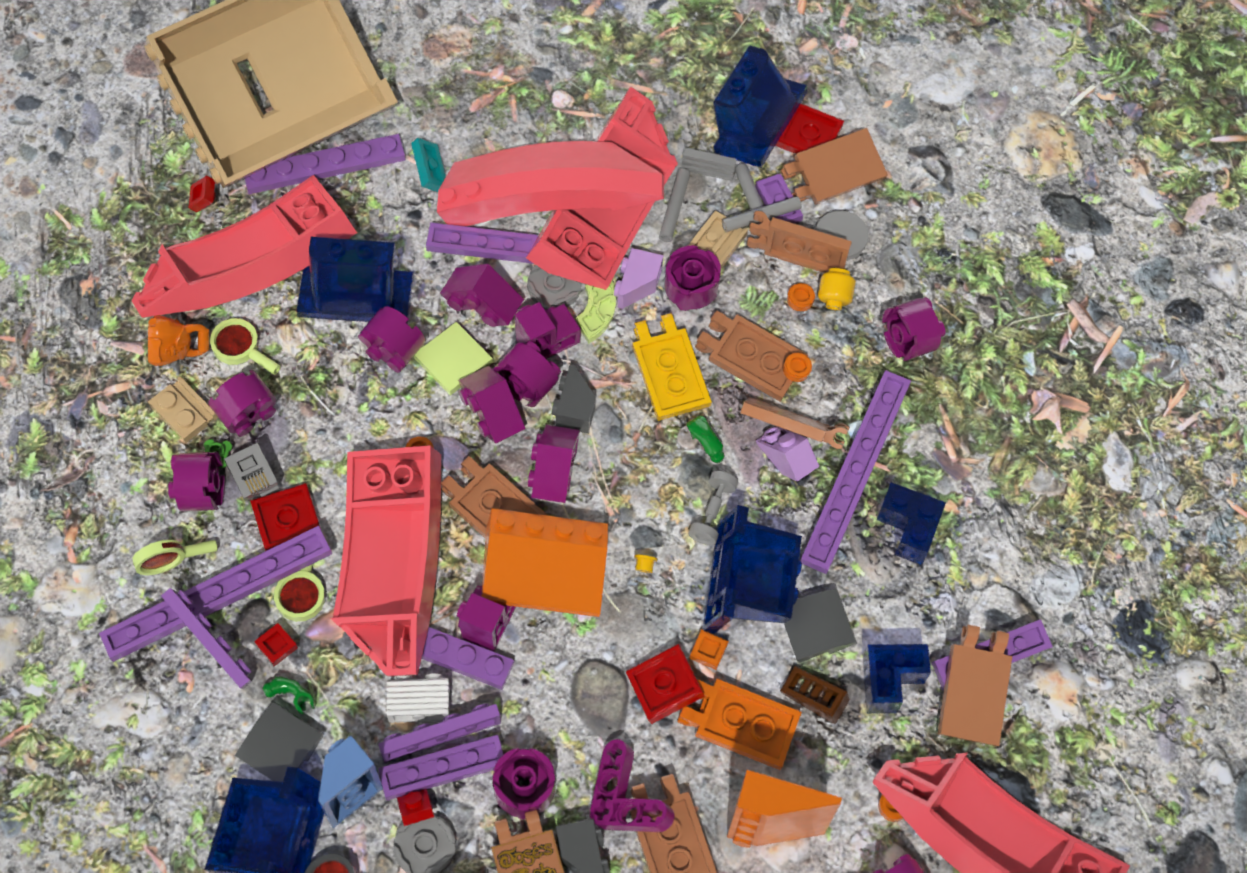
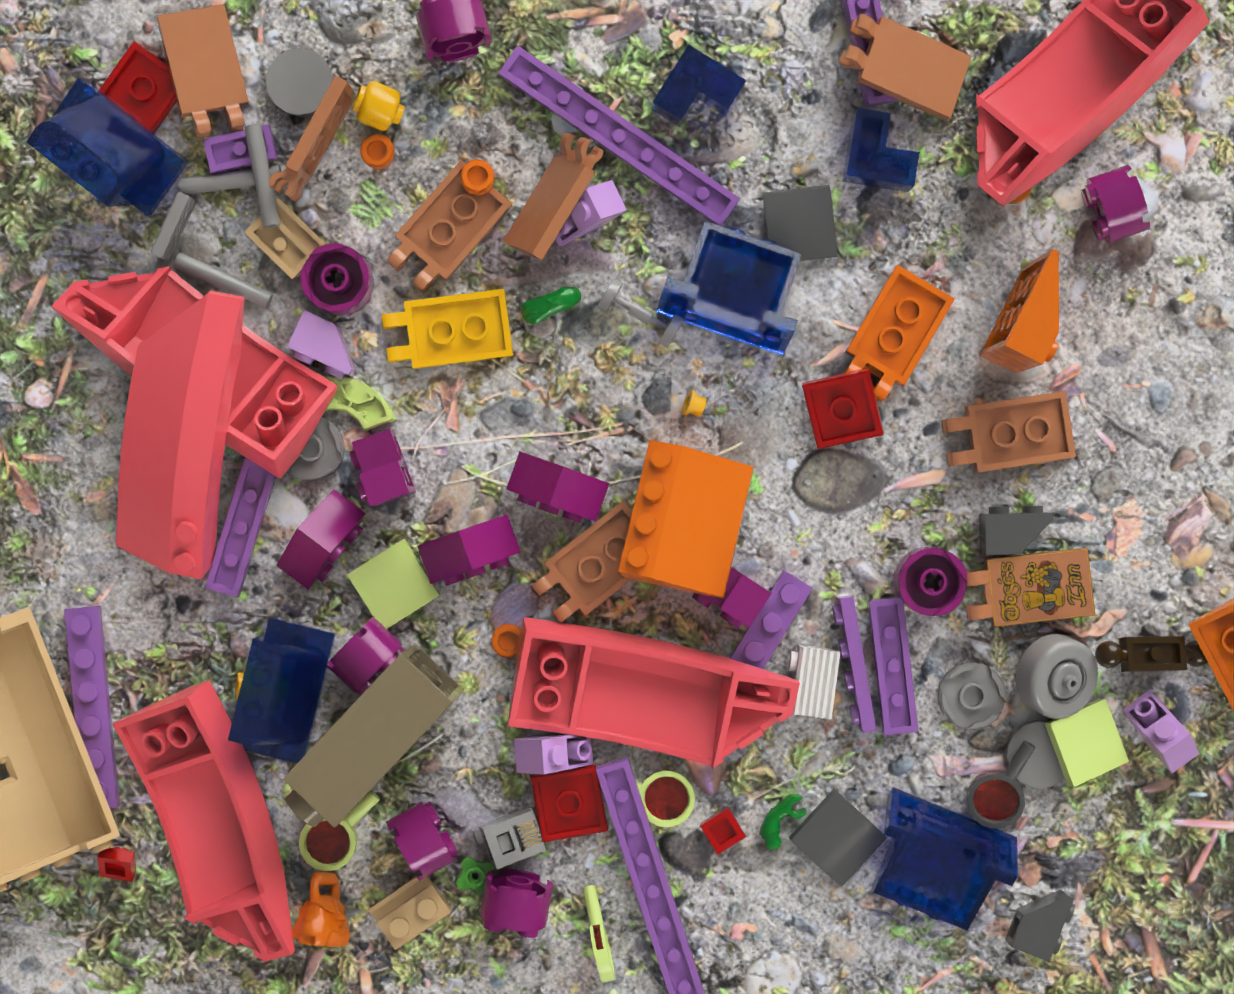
camera: 80 degrees left, 25 degrees up
(200, 628) = (702, 912): medium lavender plate -> none
(328, 341) = (370, 738): none -> dark tan brick
(328, 496) = (552, 753): none -> lavender slope
(347, 780) = (902, 768): medium blue slope -> none
(415, 807) = (933, 700): red plate -> none
(428, 164) = (119, 577): teal plate -> none
(528, 373) = (438, 501): magenta brick -> none
(576, 404) = (480, 448): dark grey slope -> none
(618, 804) = (971, 485): magenta beam -> none
(708, 649) = (806, 351): orange tile -> none
(830, 714) = (904, 230): reddish brown slope -> none

